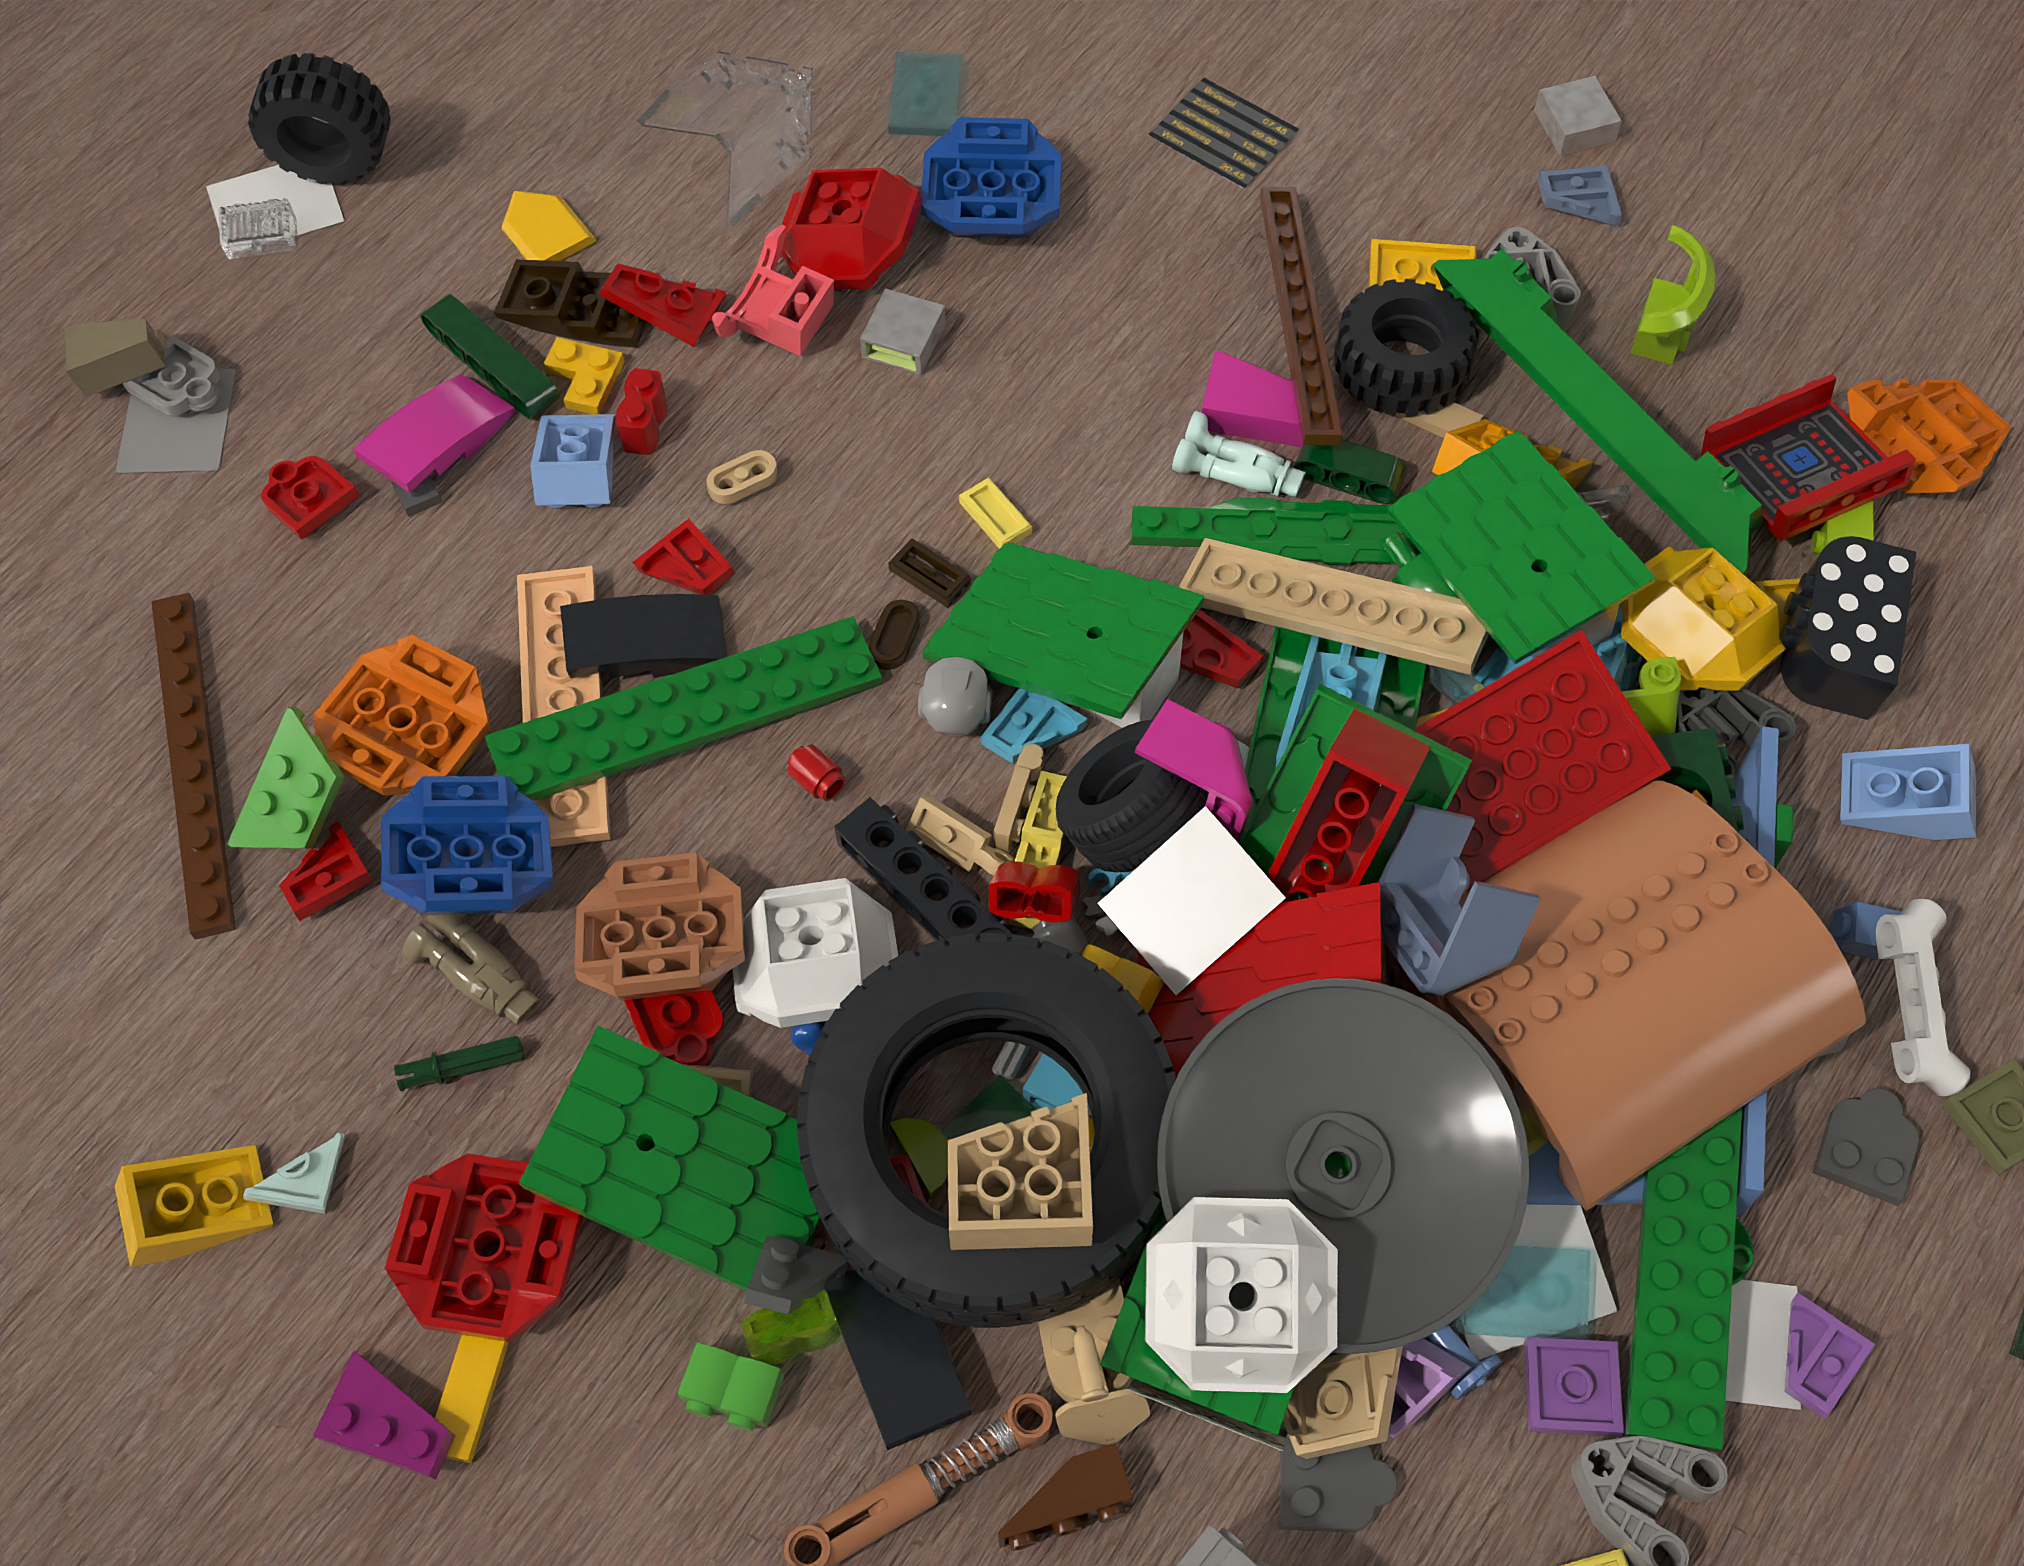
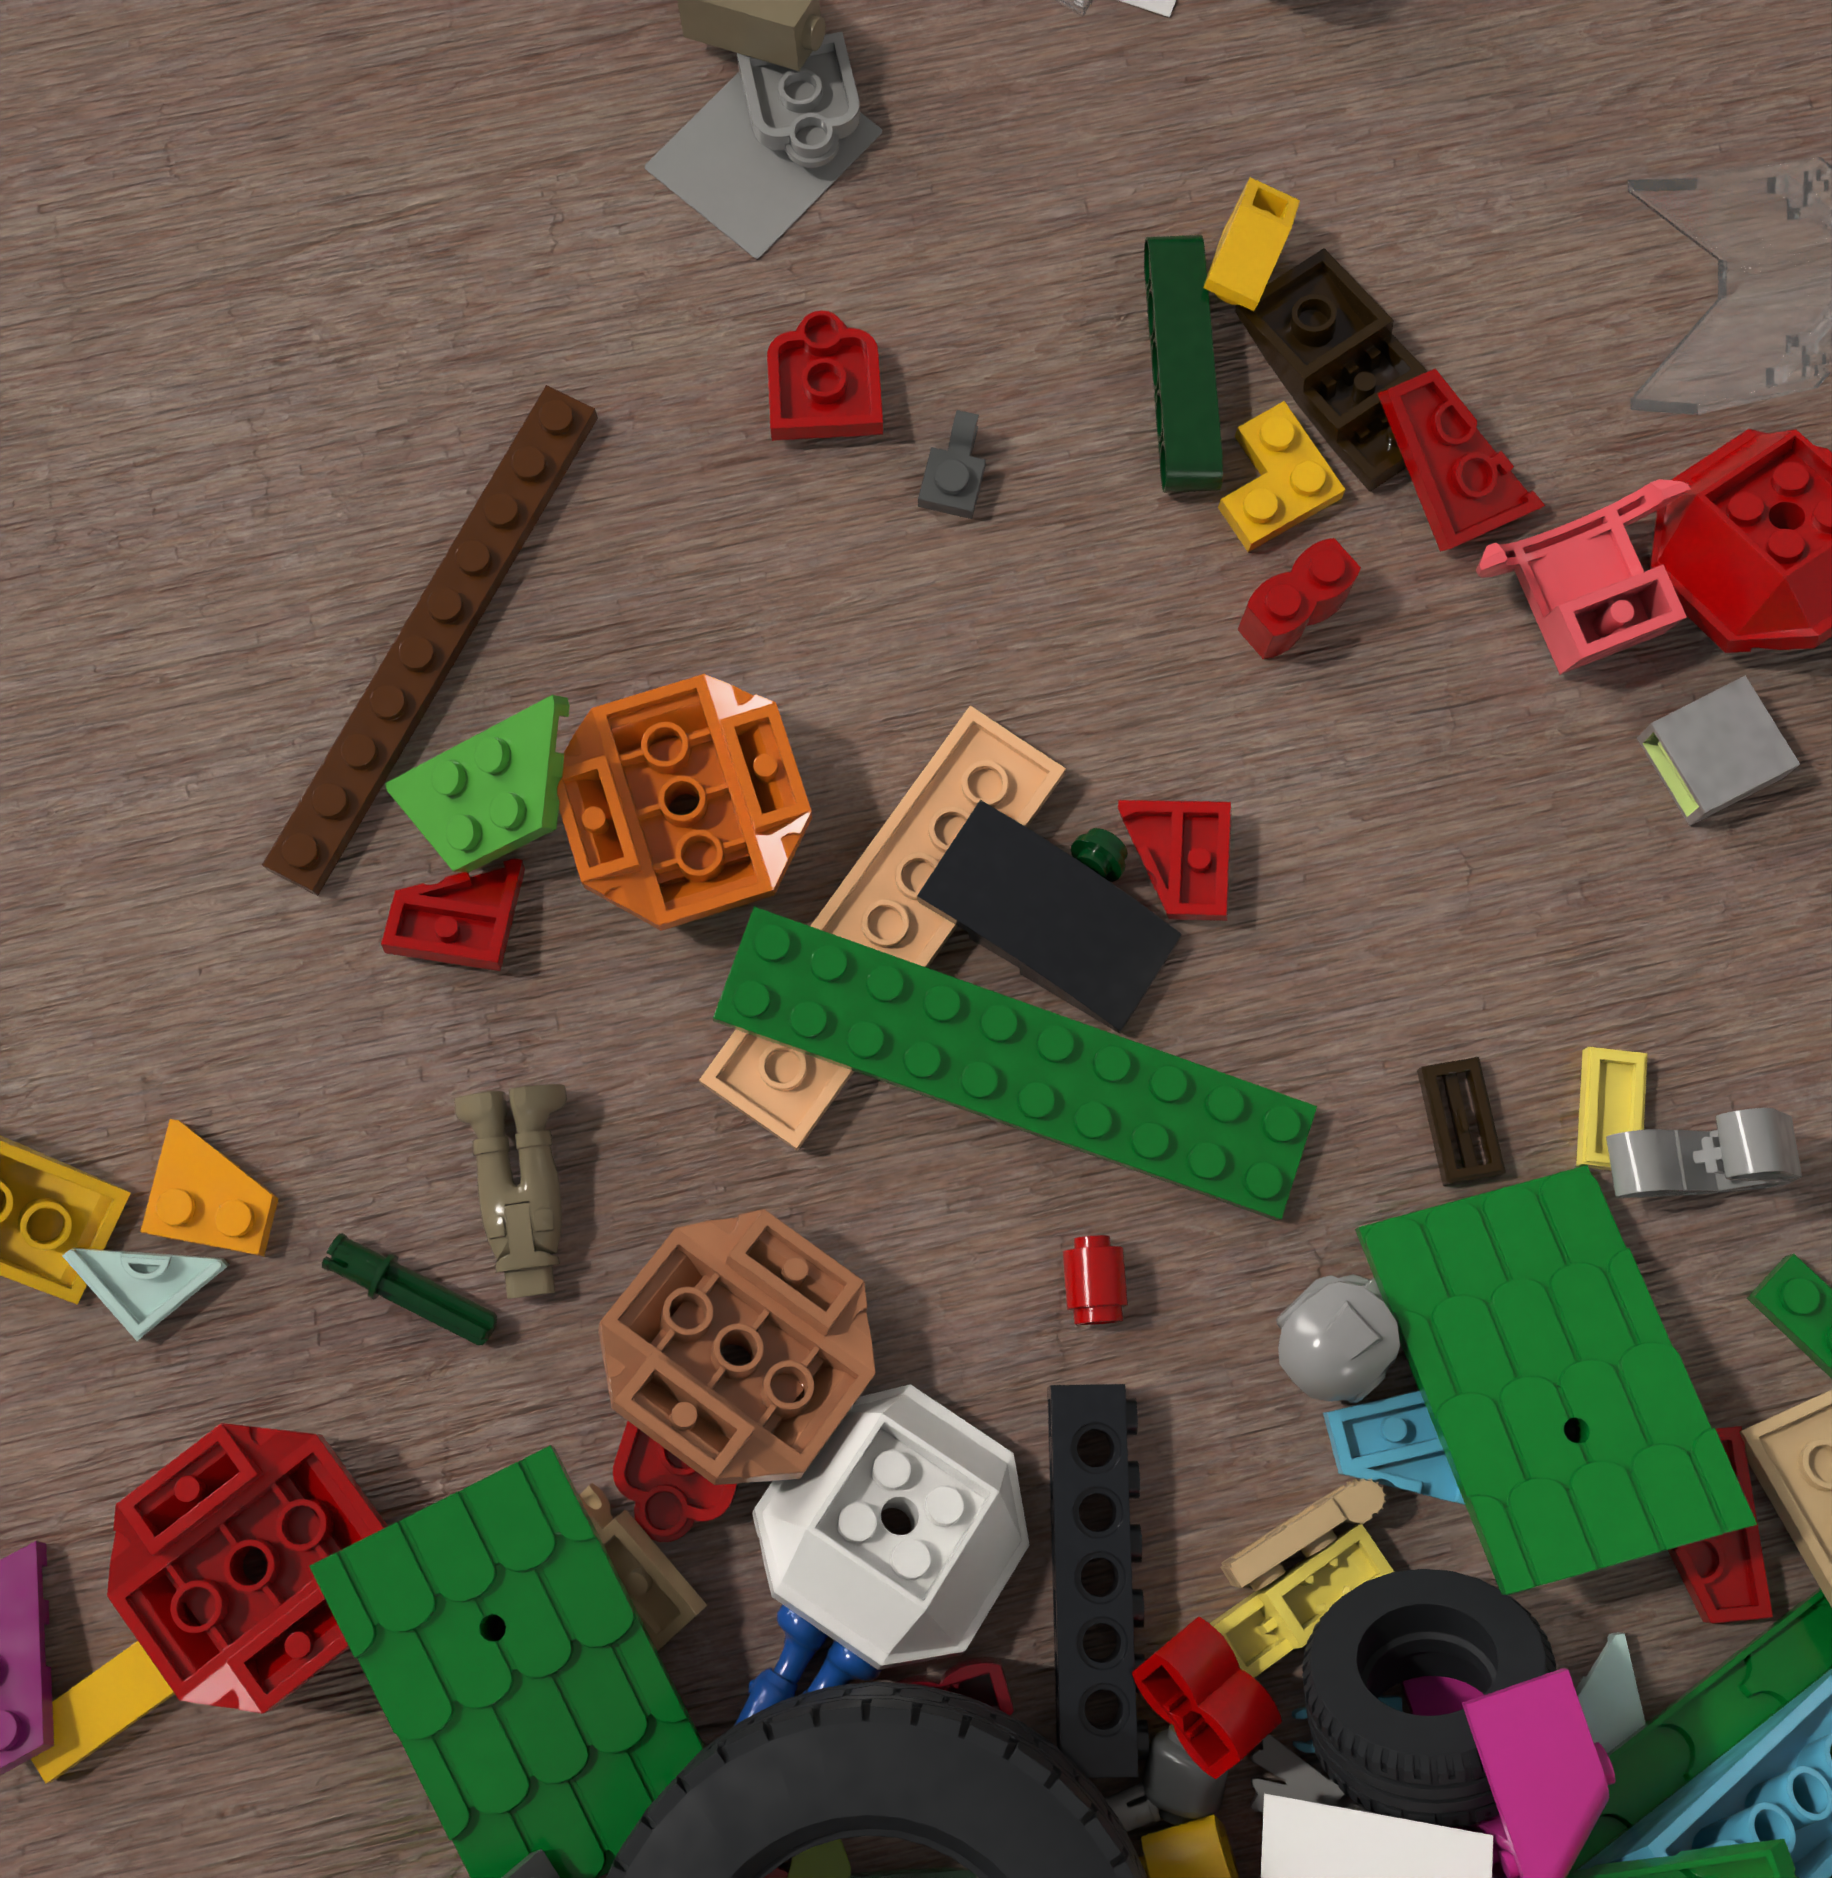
camera: 40 degrees right, 15 degrees up
(302, 1113) = (206, 1197): none -> light orange wing
(434, 431) = (1034, 419): dark pink slope -> none
(465, 847) = (641, 1003): blue piece -> none
(477, 278) = (1251, 244): none -> yellow slope
(544, 227) = (1399, 223): yellow tile -> none
(573, 460) = (1165, 596): light blue slope -> none
(644, 585) = (1101, 853): none -> dark green plate
(741, 476) = (1343, 791): tan plate -> none
(894, 634) = (1347, 1169): dark brown tile -> none
(955, 836) = (1186, 1521): tan plate -> none
(1067, 490) = (1744, 1153): none -> light grey connector

